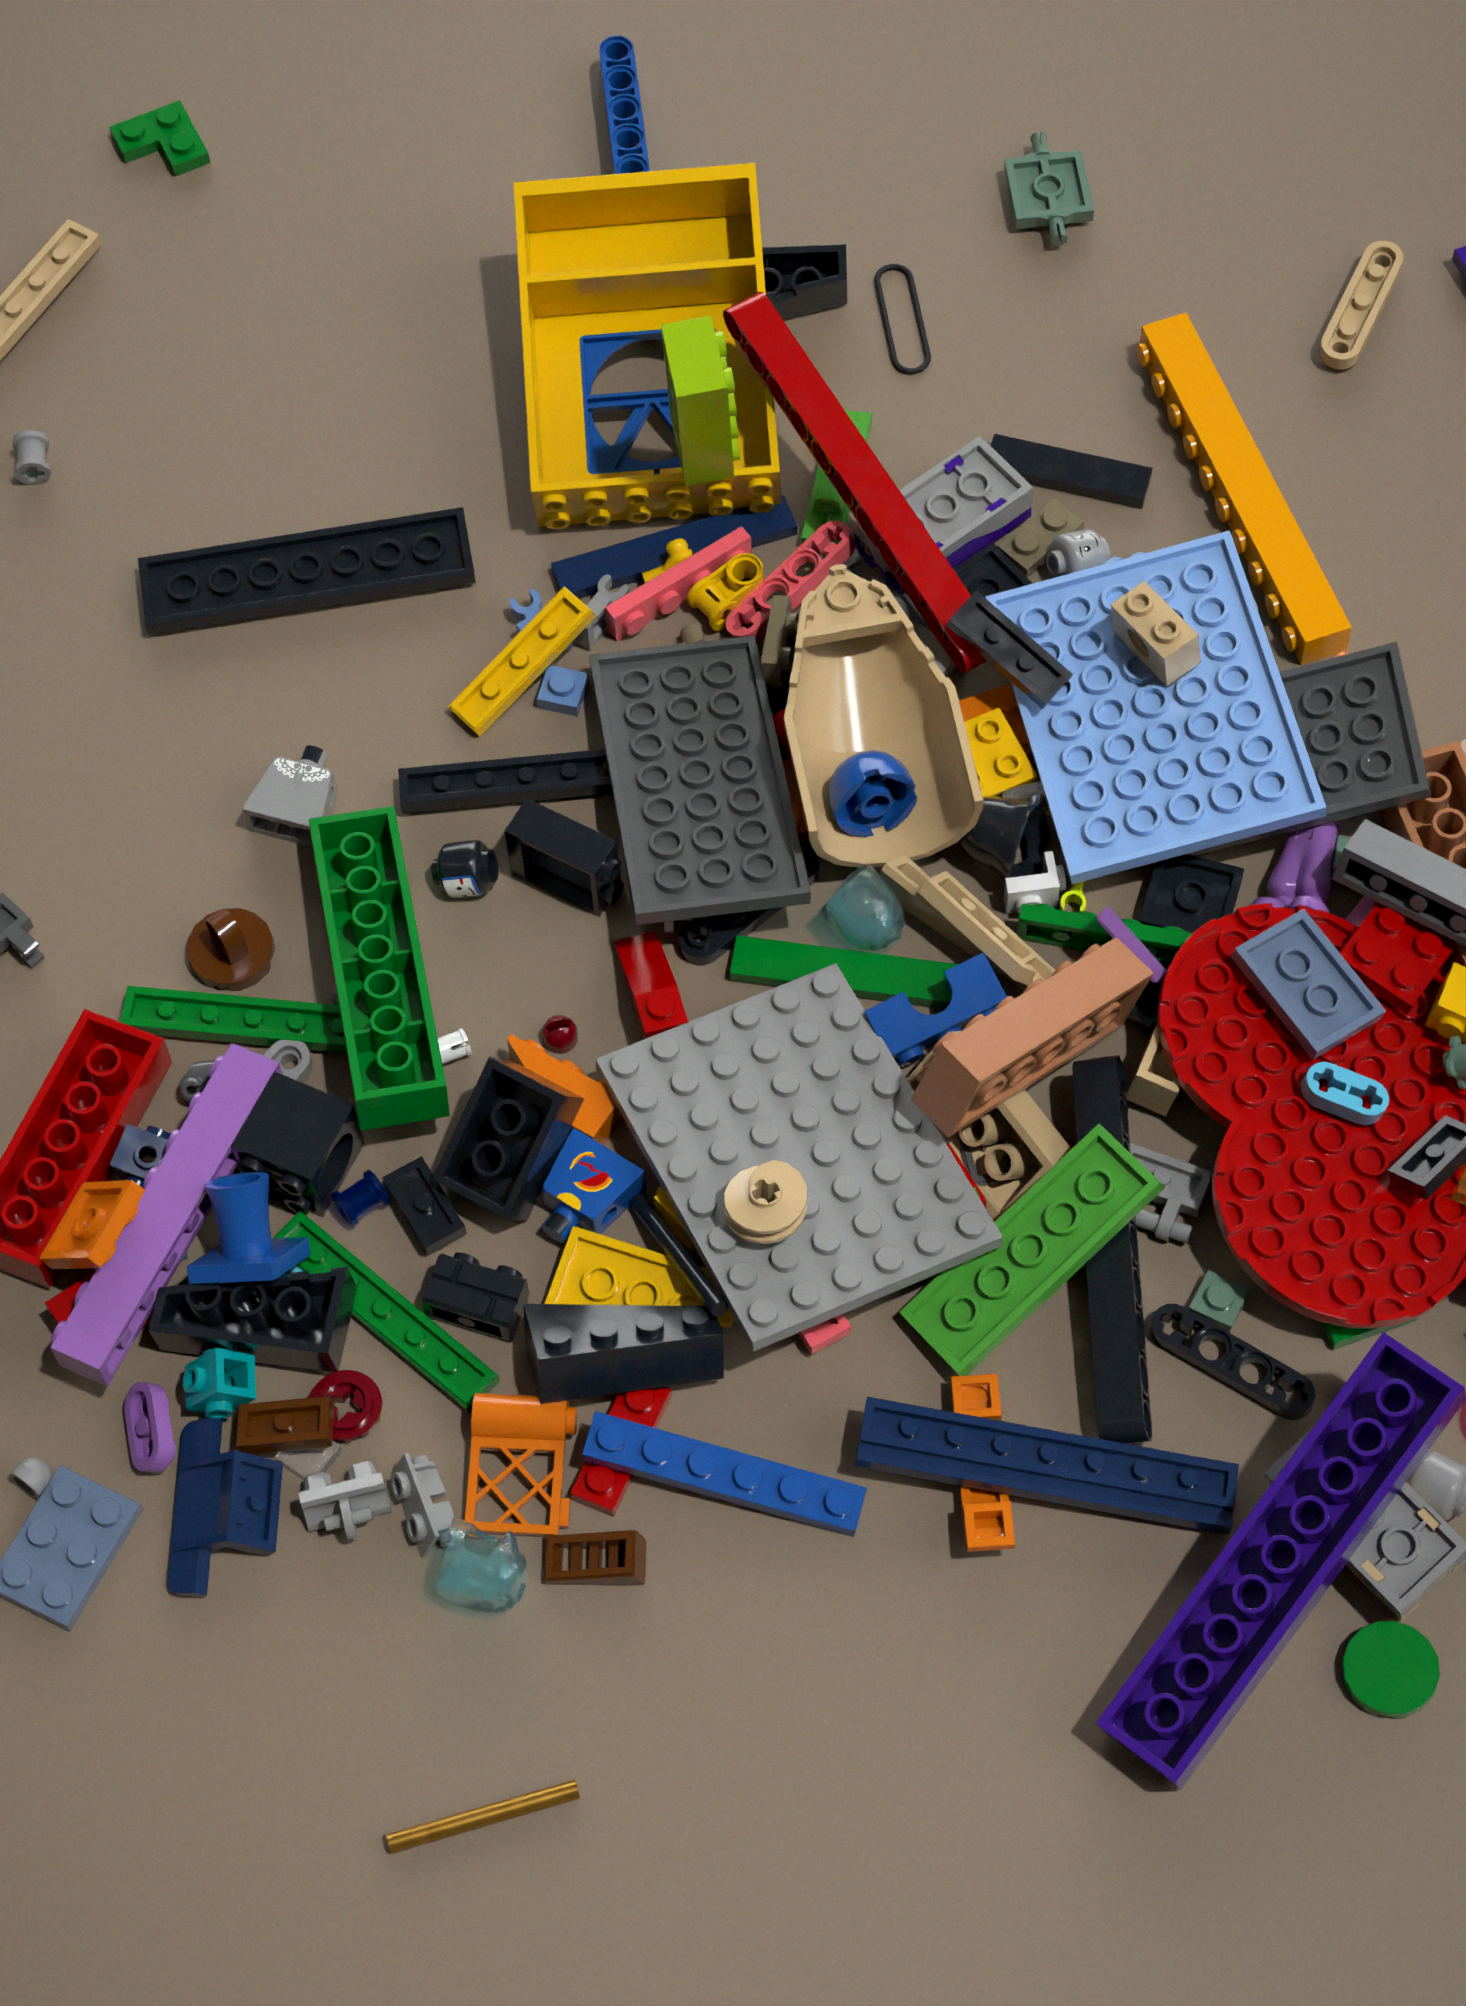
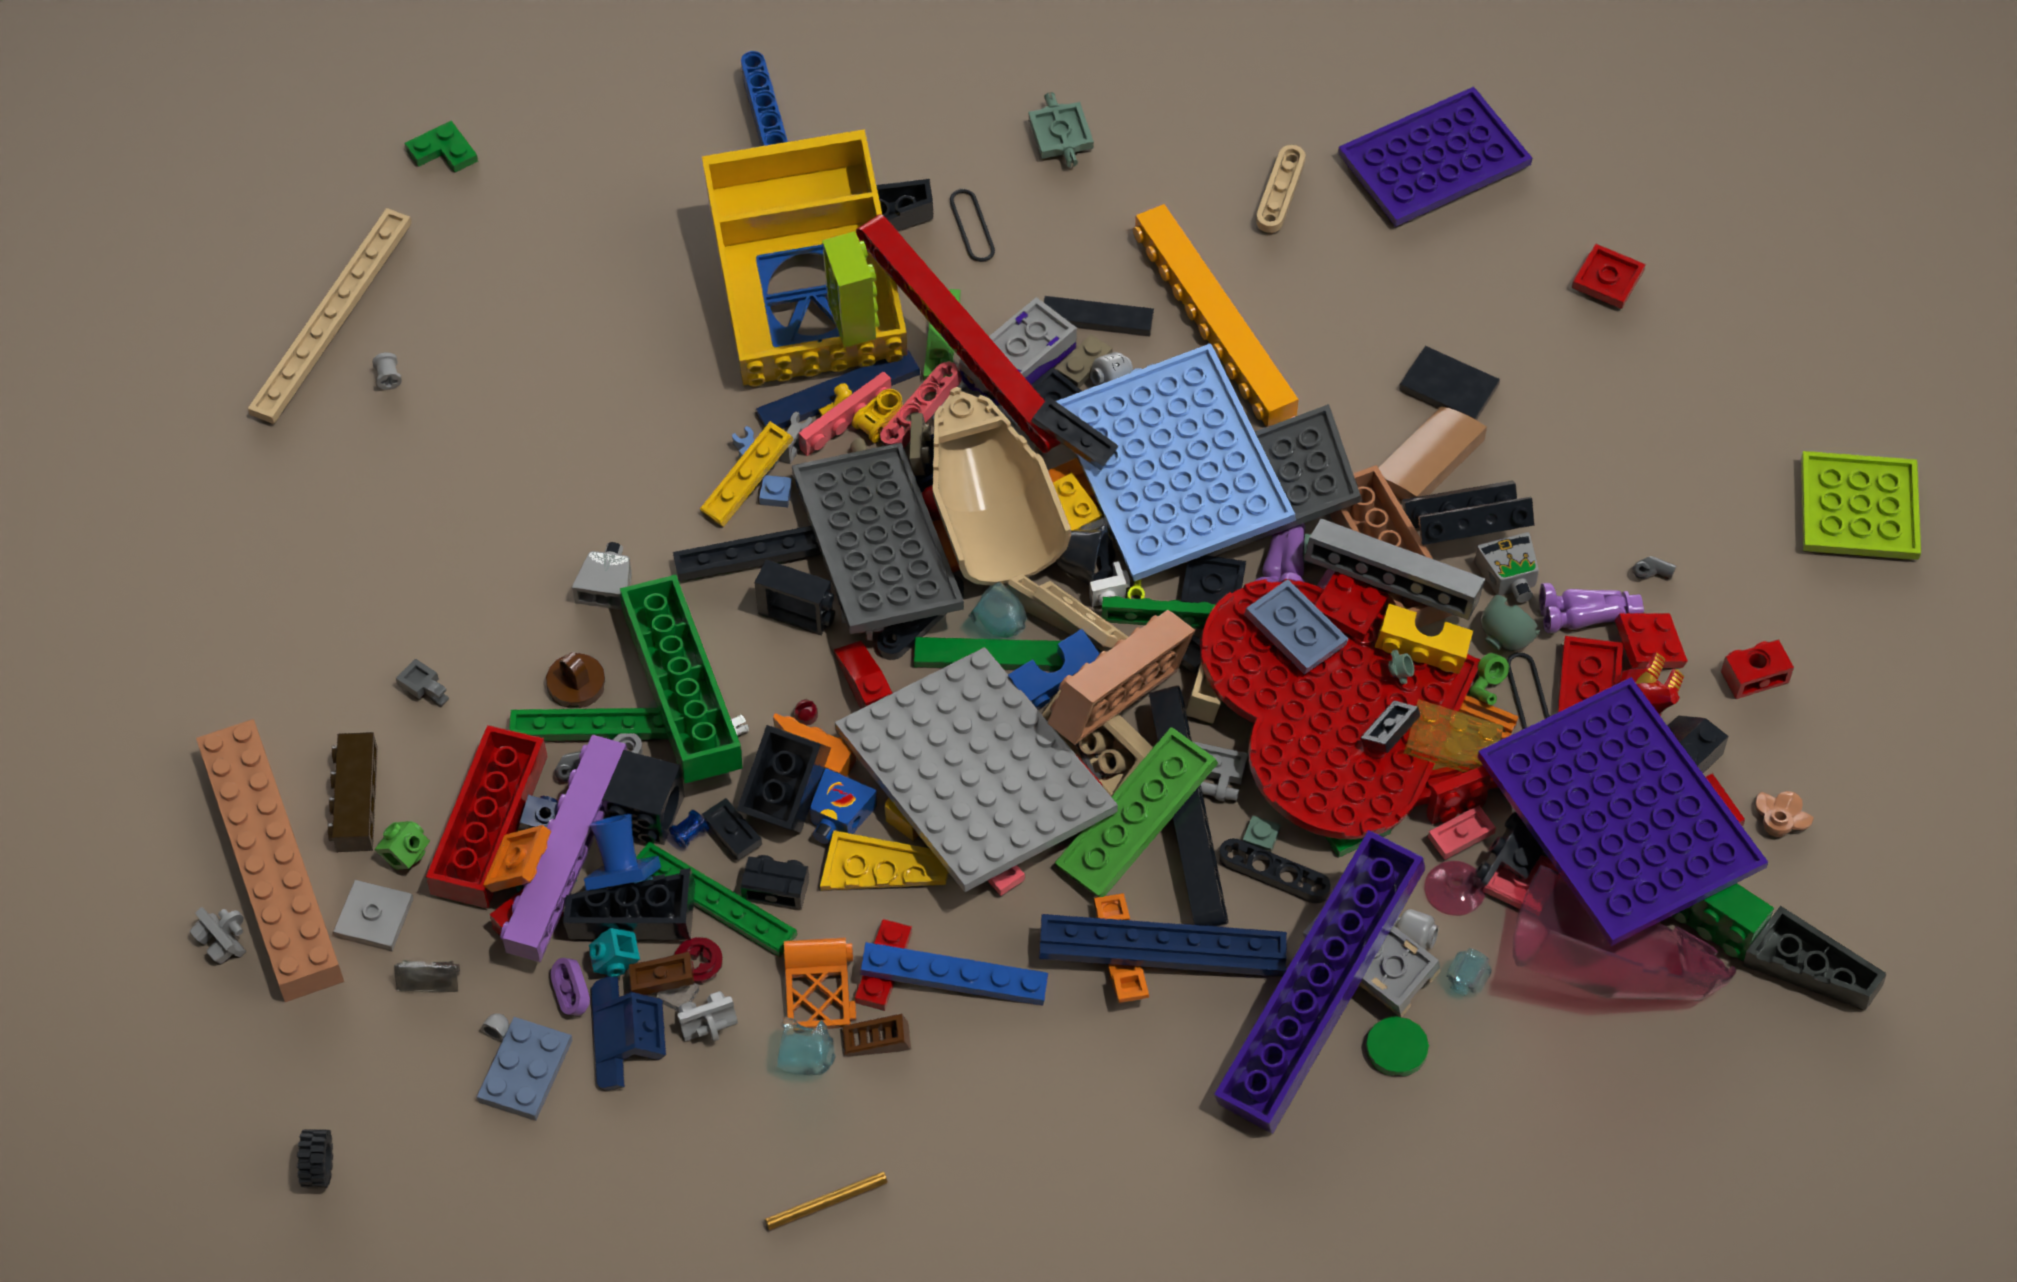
camera: 10 degrees left, 5 degrees down
(305, 570) = (589, 428): black plate -> none
(415, 1485) = (752, 1004): light grey hinge -> none
(465, 868) = (727, 612): black head -> none
(619, 1348) = (875, 902): black wedge -> none
(679, 1255) = (906, 840): black bar -> none
(766, 1202) = (962, 796): tan piece -> none
(870, 793) = (994, 534): blue cylinder -> none
(1117, 928) = (1167, 604): medium lavender tile -> none
(1155, 633) = (1170, 413): tan brick -> none
(1344, 1093) = (1327, 693): medium azure beam -> none

